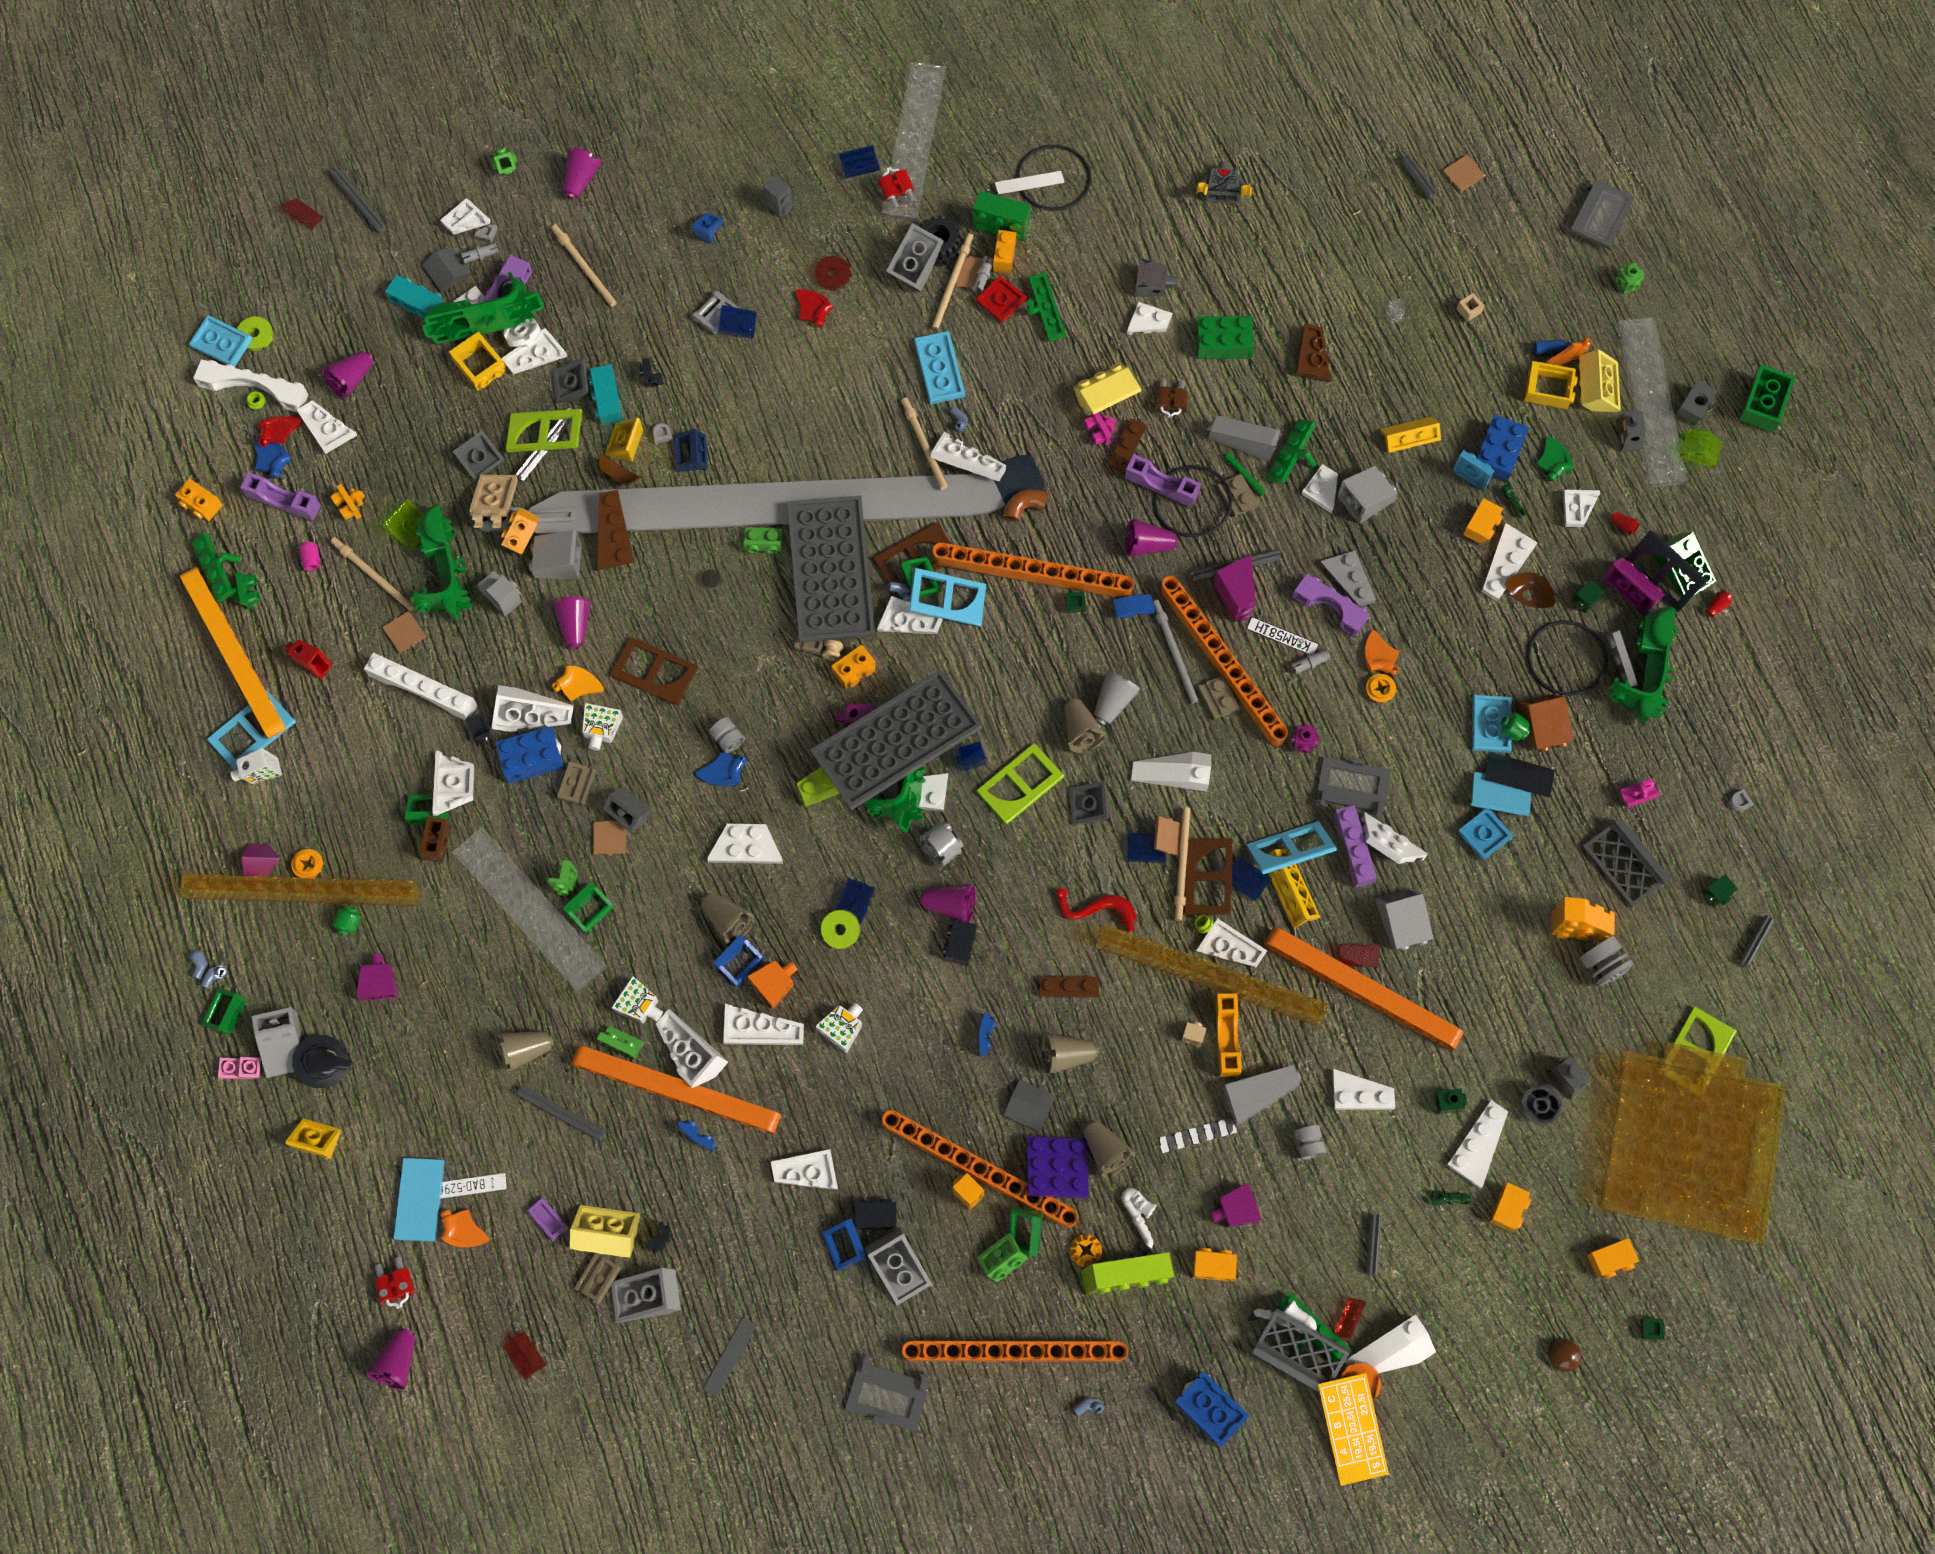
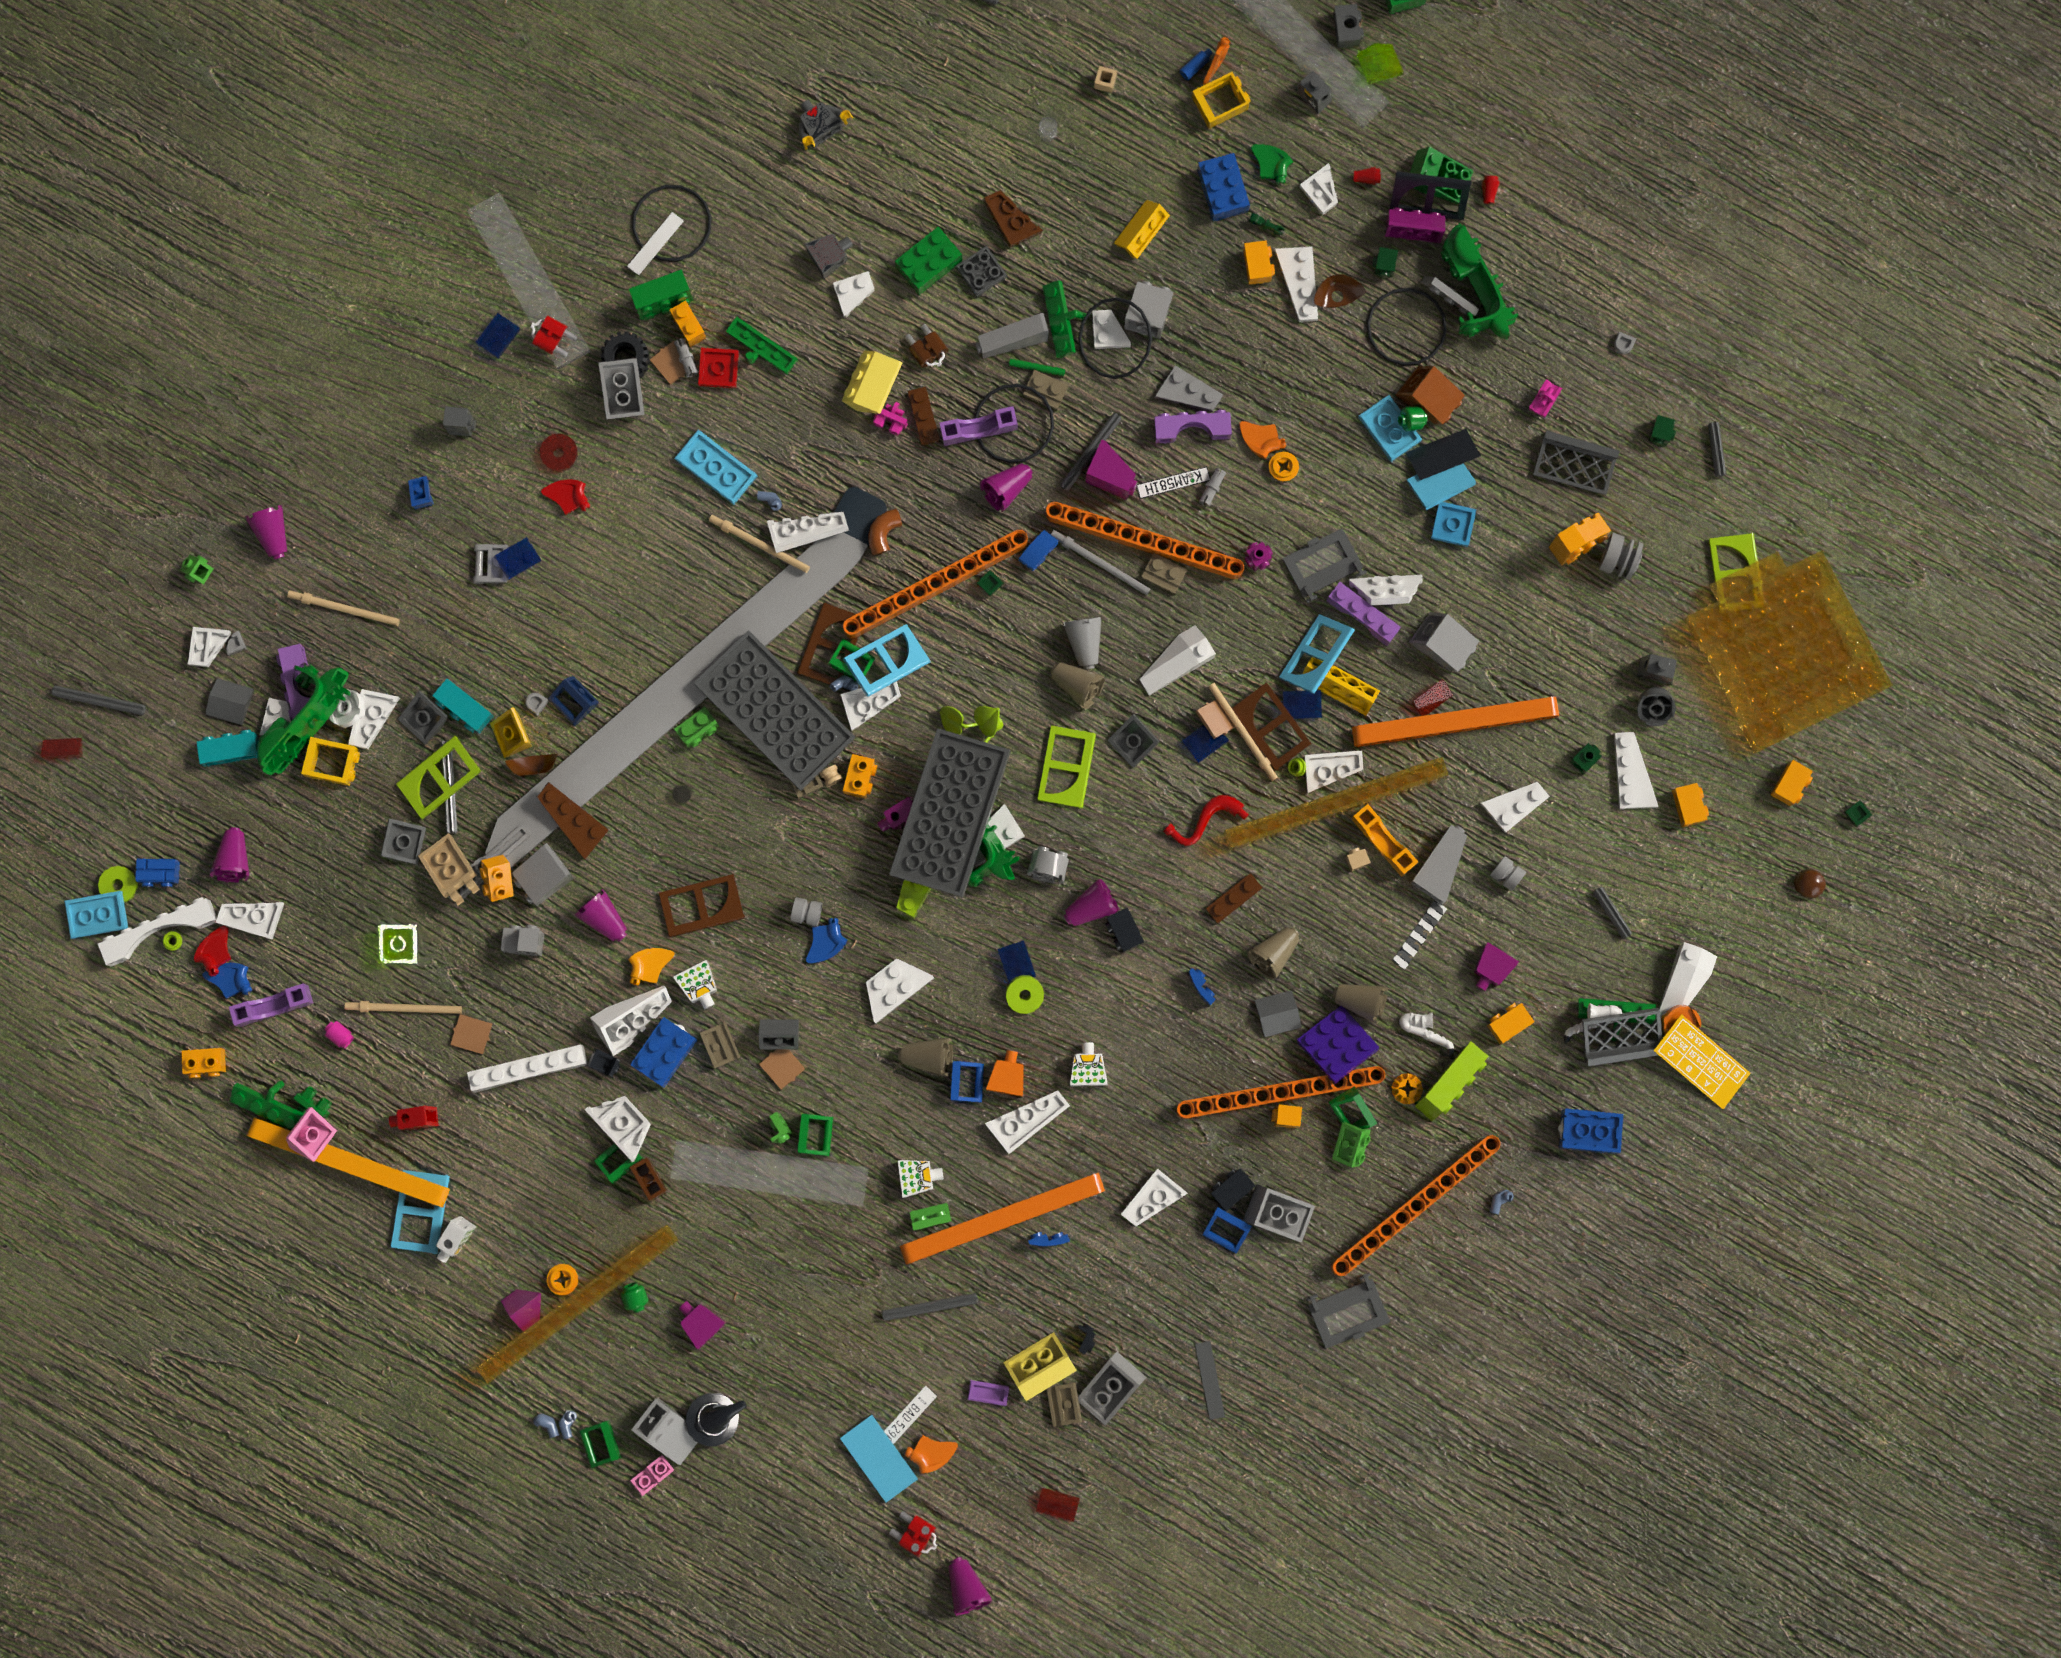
camera: 40 degrees left, 10 degrees up
(221, 606) = (310, 1135): none -> bright pink slope
(289, 344) = (157, 872): none -> blue brick
(314, 1138) = (758, 1479): yellow slope -> none
(350, 509) = (337, 969): light orange hips -> none
(437, 543) = (430, 937): green piece -> none
(479, 253) = (246, 666): light grey pin -> none
(522, 1047) = (859, 1283): dark tan cone -> none
(650, 379) = (477, 660): black bracket -> none
(693, 1056) = (994, 1182): white wedge -> none
(963, 253) = (653, 350): tan bar -> none
(971, 756) = (1012, 776): clear blue brick -> none
(983, 691) = (985, 717): none -> lime plant
(1259, 375) = (981, 271): none -> dark grey tile
(1340, 518) = (1081, 344): none -> black piece
(1349, 1318) = (1637, 982): clear red slope -> none
(1463, 1198) = (1641, 832): dark green piece -> none
(1473, 470) = (1217, 225): dark azure plate -> none
(1599, 382) = (1257, 67): light yellow slope -> none

